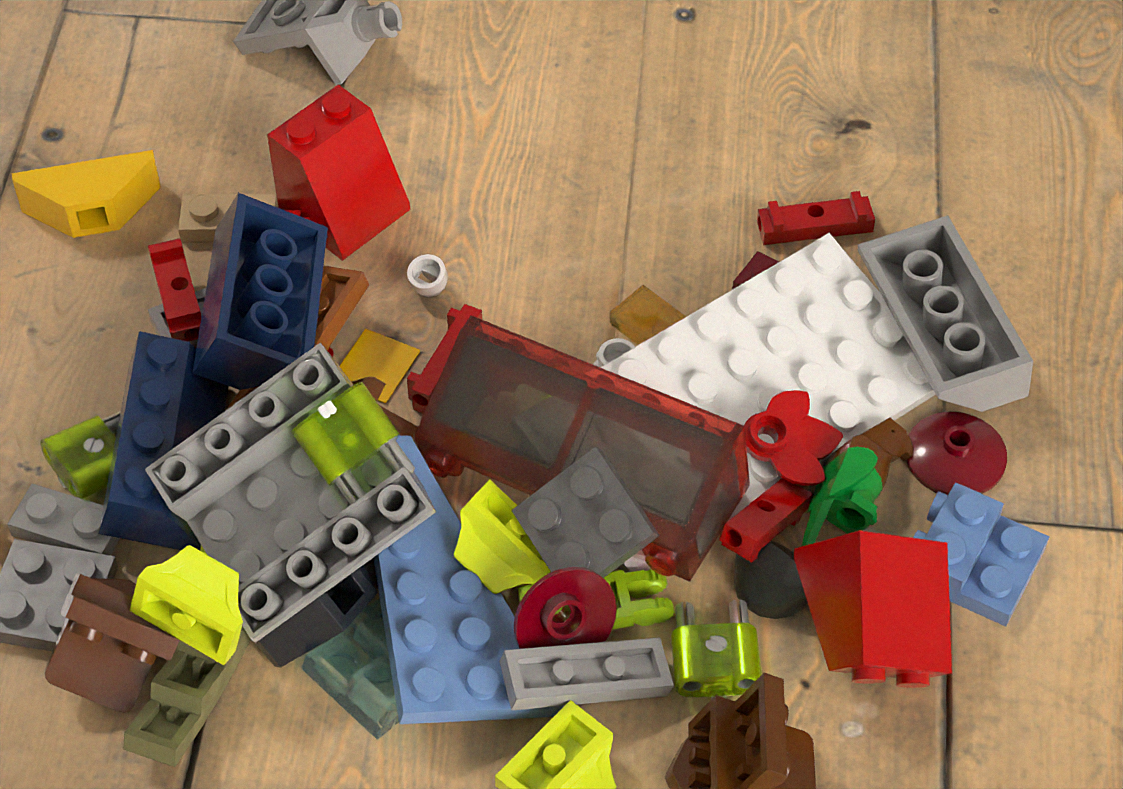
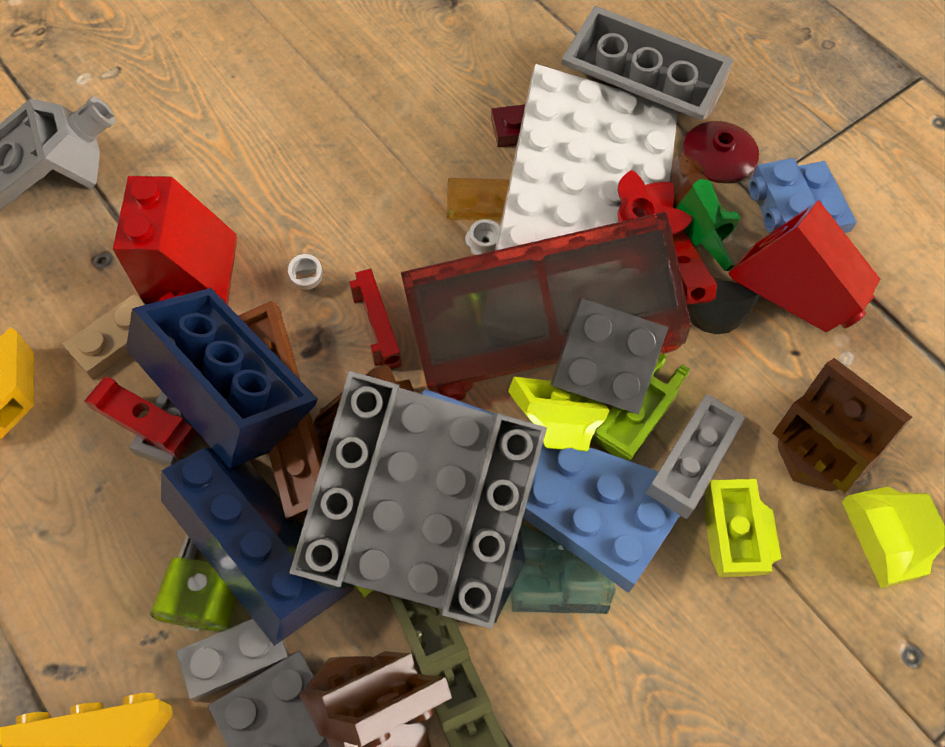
camera: 45 degrees left, 10 degrees up
(192, 601) = (429, 639): neon yellow slope -> none
(347, 435) = (431, 424): clear neon green piece -> none
(379, 358) = (327, 359): yellow sticker -> none
(585, 614) = (655, 427): dark red dish -> none
(715, 656) = (743, 378): clear neon green piece -> none
(815, 219) = (499, 67): red piece -> none

